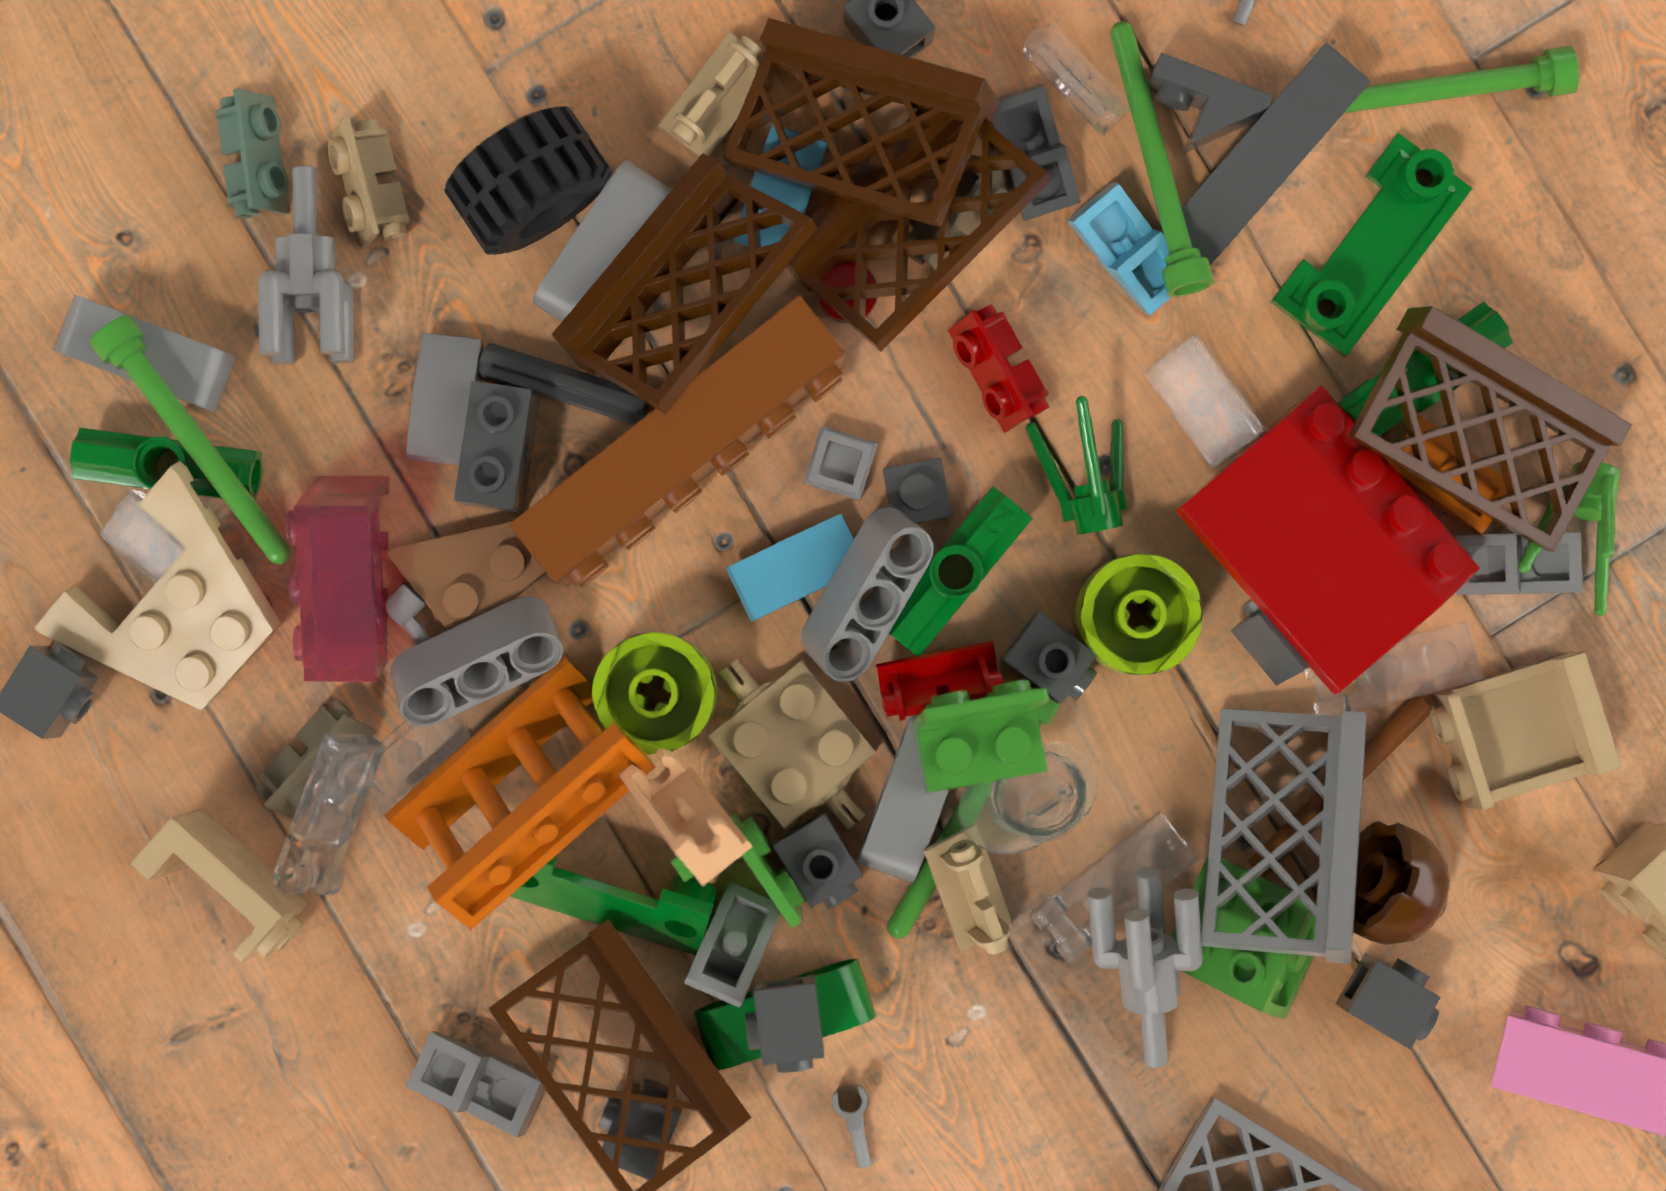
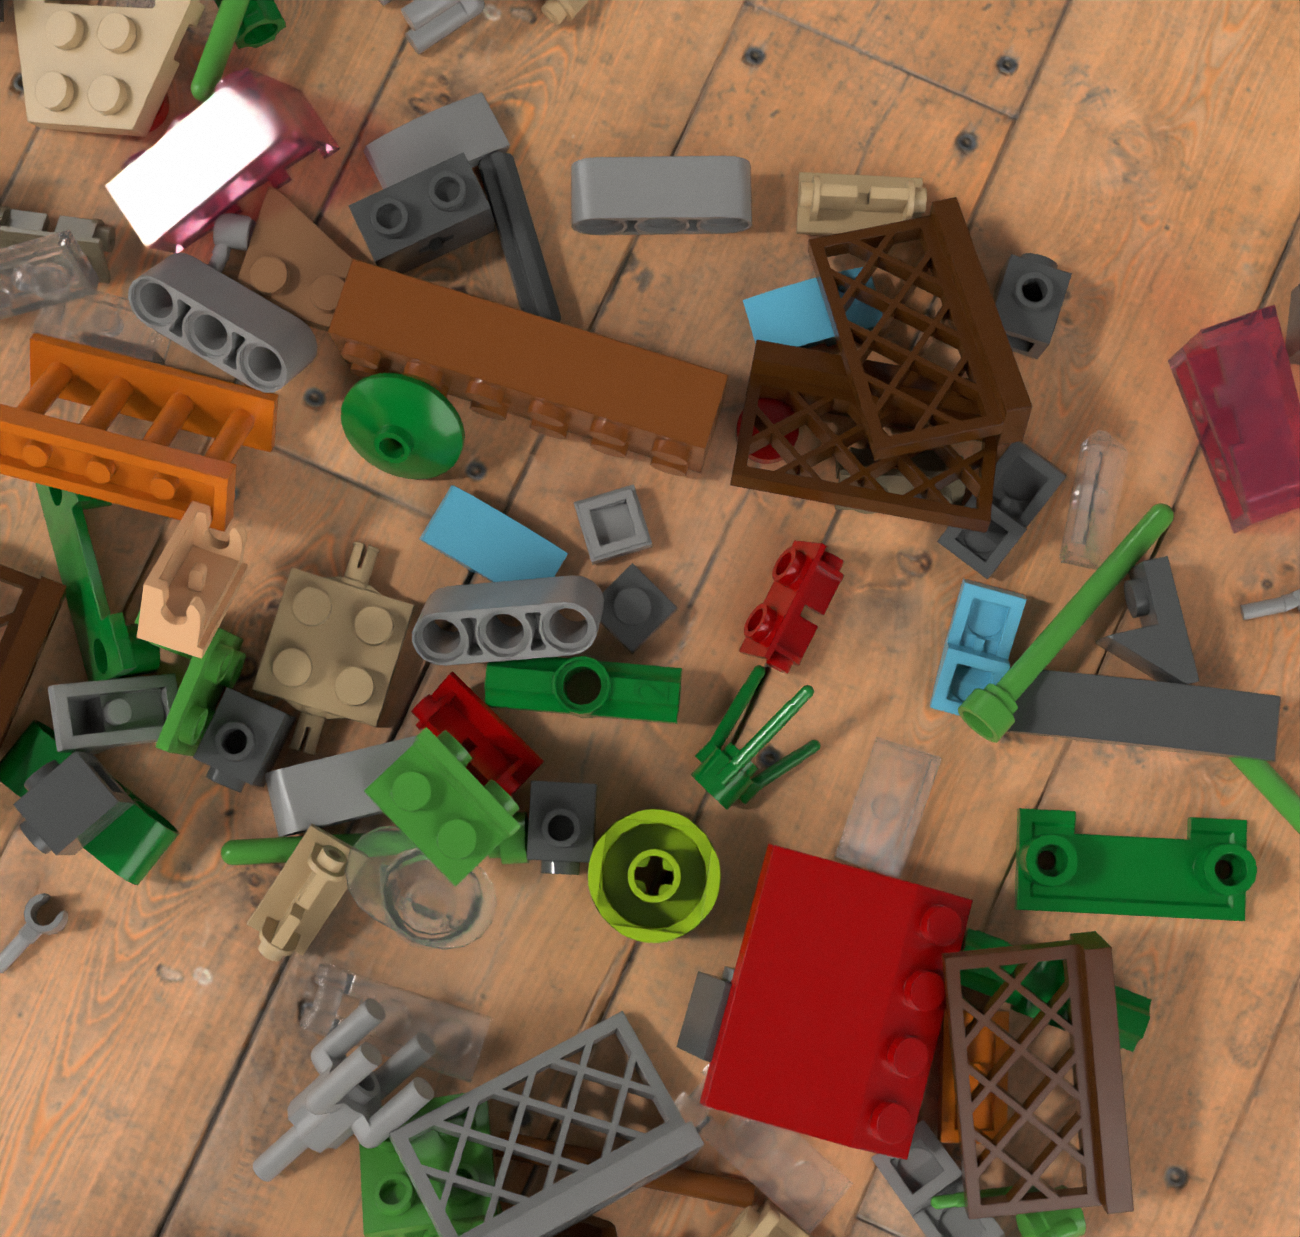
camera: 55 degrees right, 5 degrees down
(527, 180) = (670, 83): black tyre -> none
(640, 661) = (266, 477): lime brick -> none
(654, 264) = (676, 246): reddish brown fence -> none
(656, 575) = (402, 426): none -> green dish

